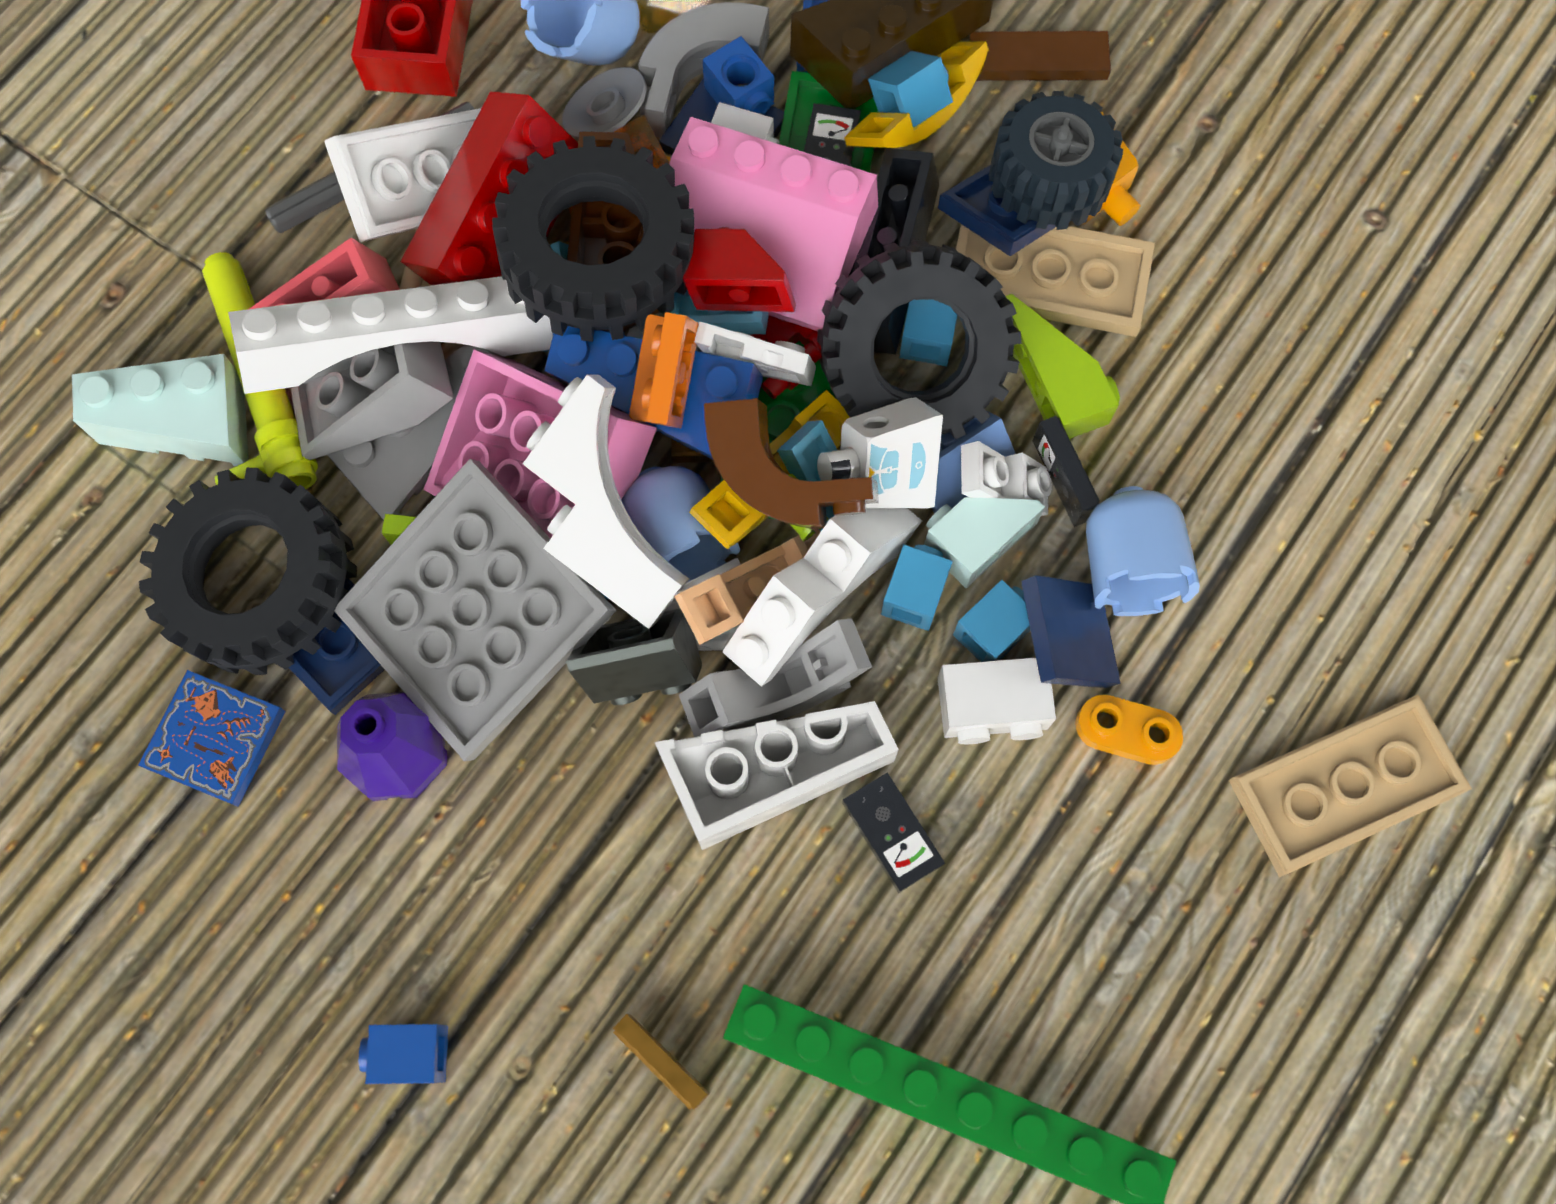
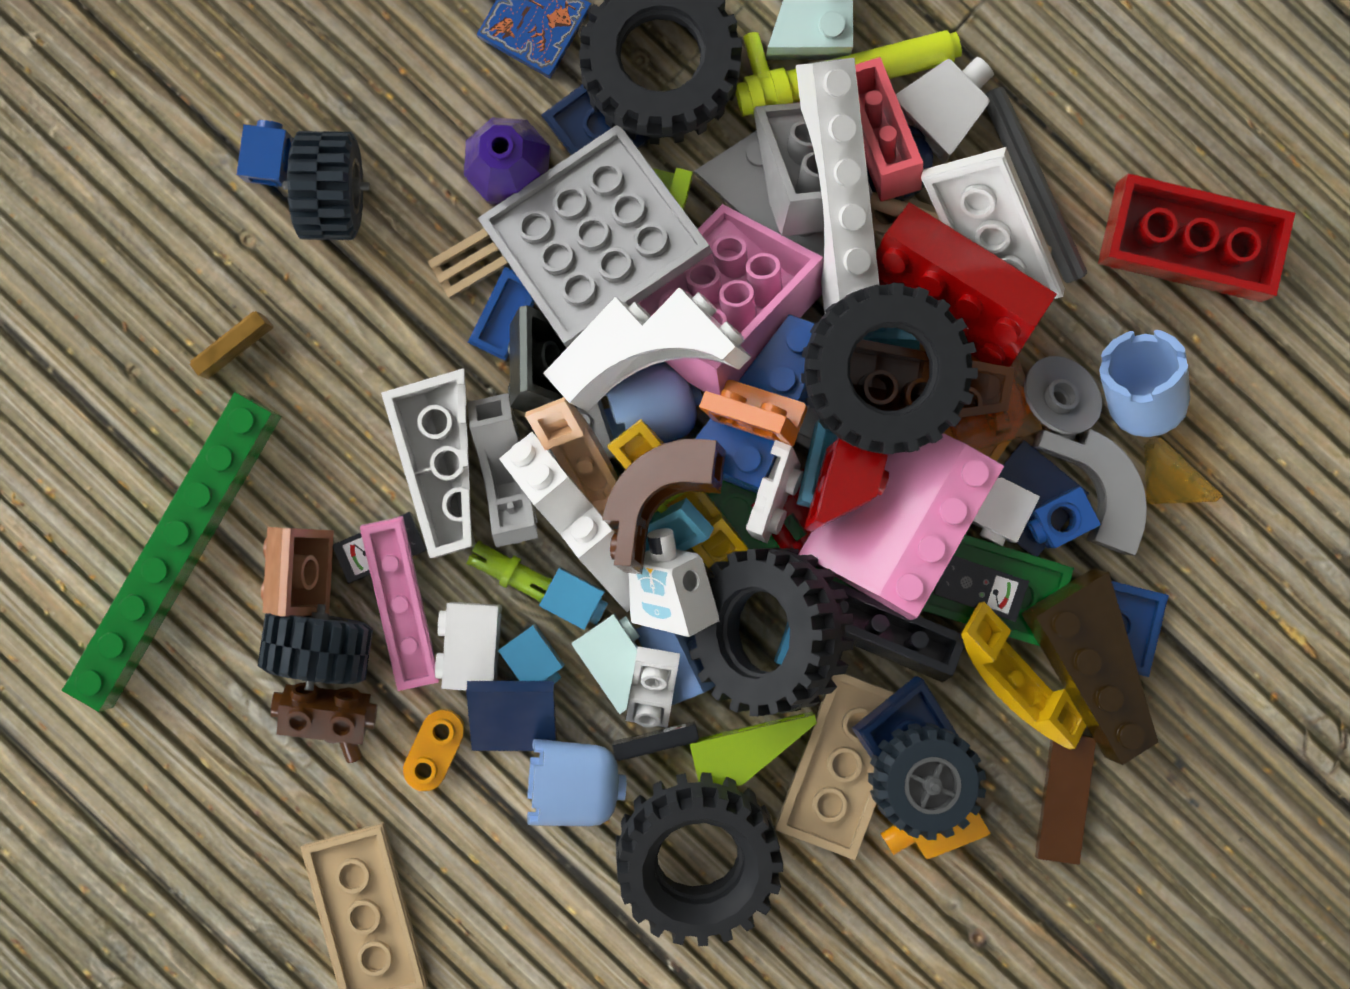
camera: 95 degrees right, 15 degrees up
(279, 248) = (946, 103): none -> white torso
(437, 955) = (325, 185): none -> black wheel
(544, 803) = (458, 249): none -> tan tile
(579, 723) = (493, 326): none -> blue tile
(897, 666) = (509, 571): none -> lime pin
(912, 86) = (1026, 670): dark azure brick -> none
(944, 927) = (296, 570): none -> nougat slope
(957, 793) = (399, 603): none -> bright pink tile
(1036, 880) = (315, 648): none -> black wheel
(1116, 863) = (325, 715): none -> reddish brown brick
(1233, 366) = (701, 908): none -> black tyre

